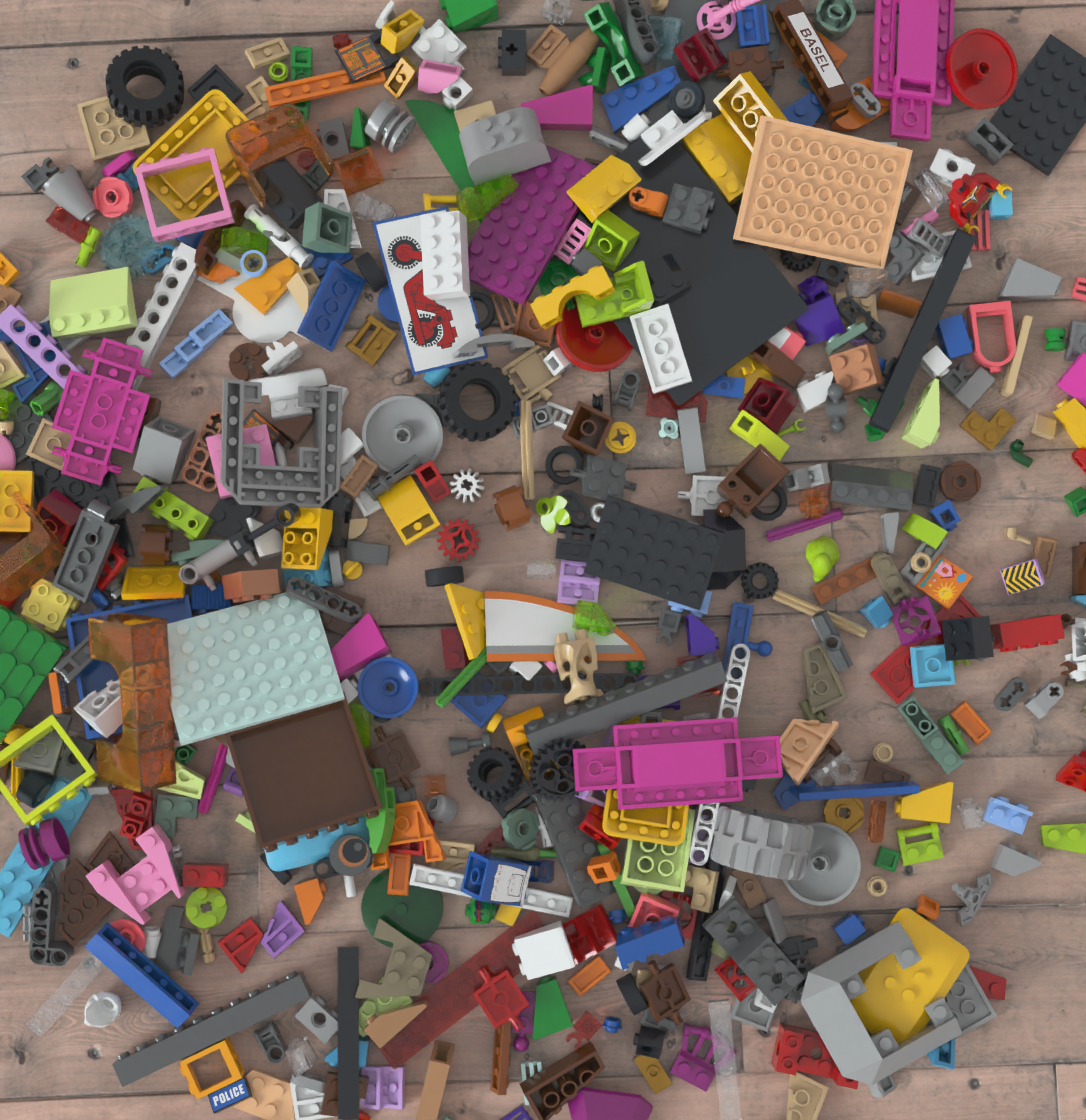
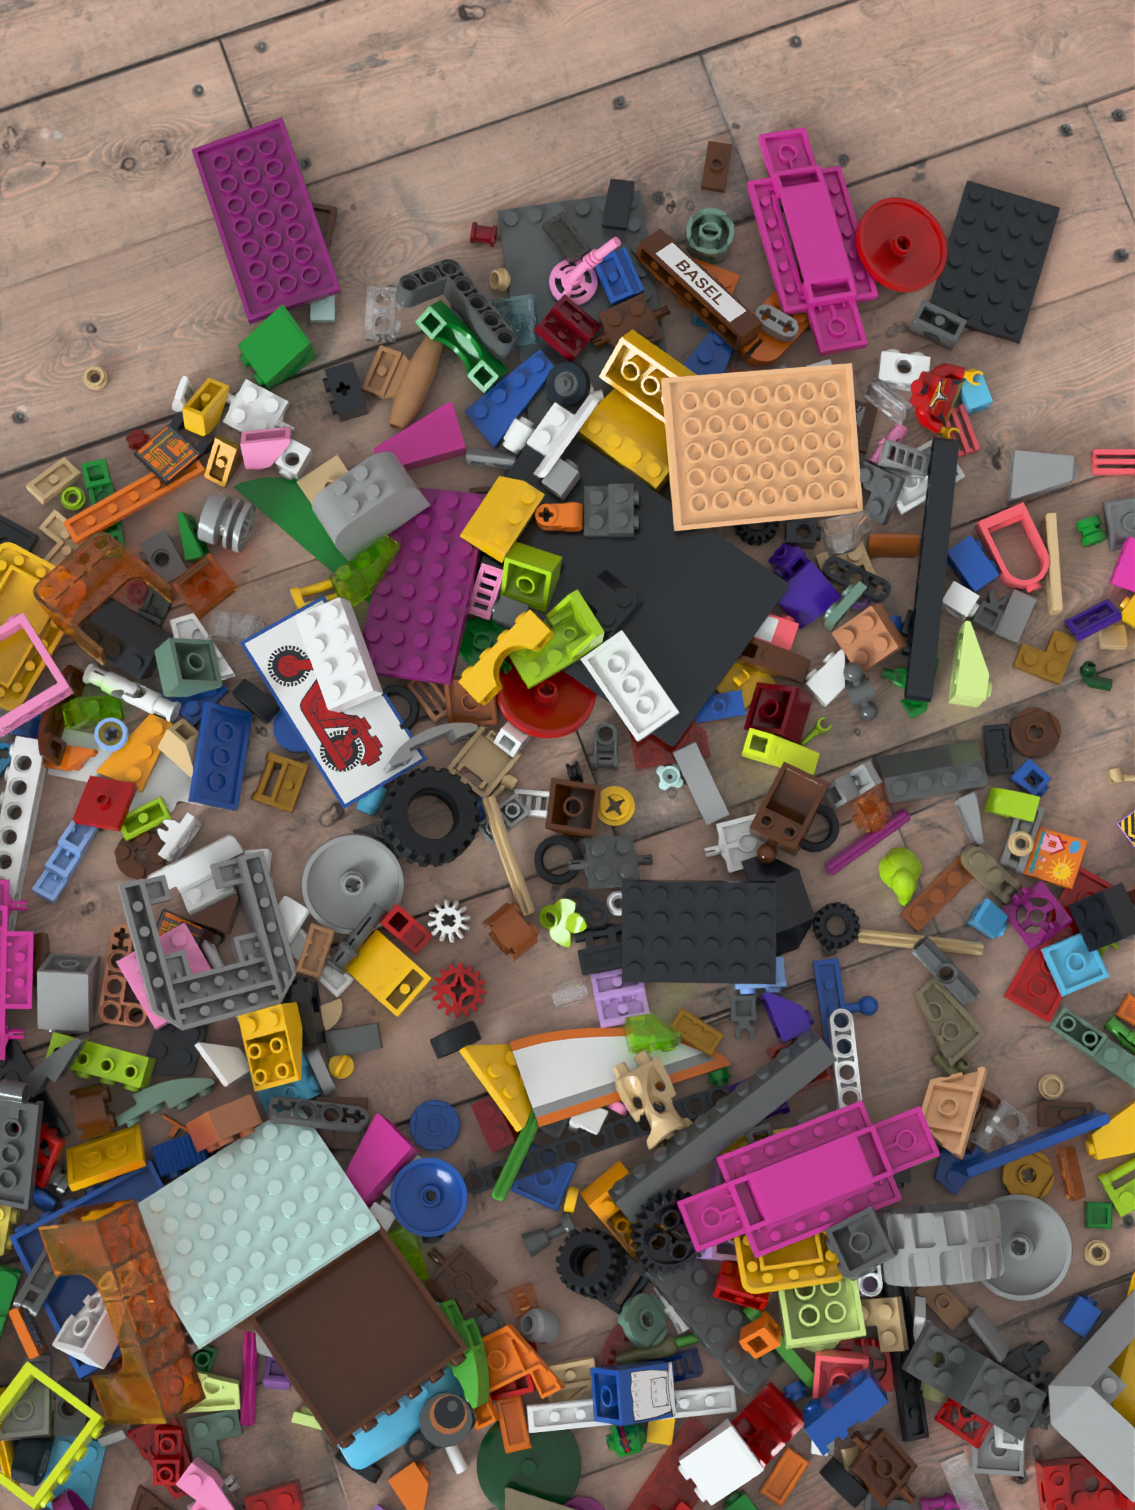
camera: 15 degrees left, 5 degrees down
(233, 315) = (105, 803): none -> red plate
(233, 548) = (189, 1085): piece -> none
(259, 335) = (145, 818): none -> lime slope
(409, 635) = (435, 1125): none -> blue tile
(600, 63) = (455, 391): green tile -> none
(628, 628) = (697, 1032): none -> pearl gold plate
(658, 171) = (561, 478): none -> light grey brick
(700, 823) = (859, 1244): none -> dark grey plate
(1035, 411) = (1094, 622): none -> dark purple tile

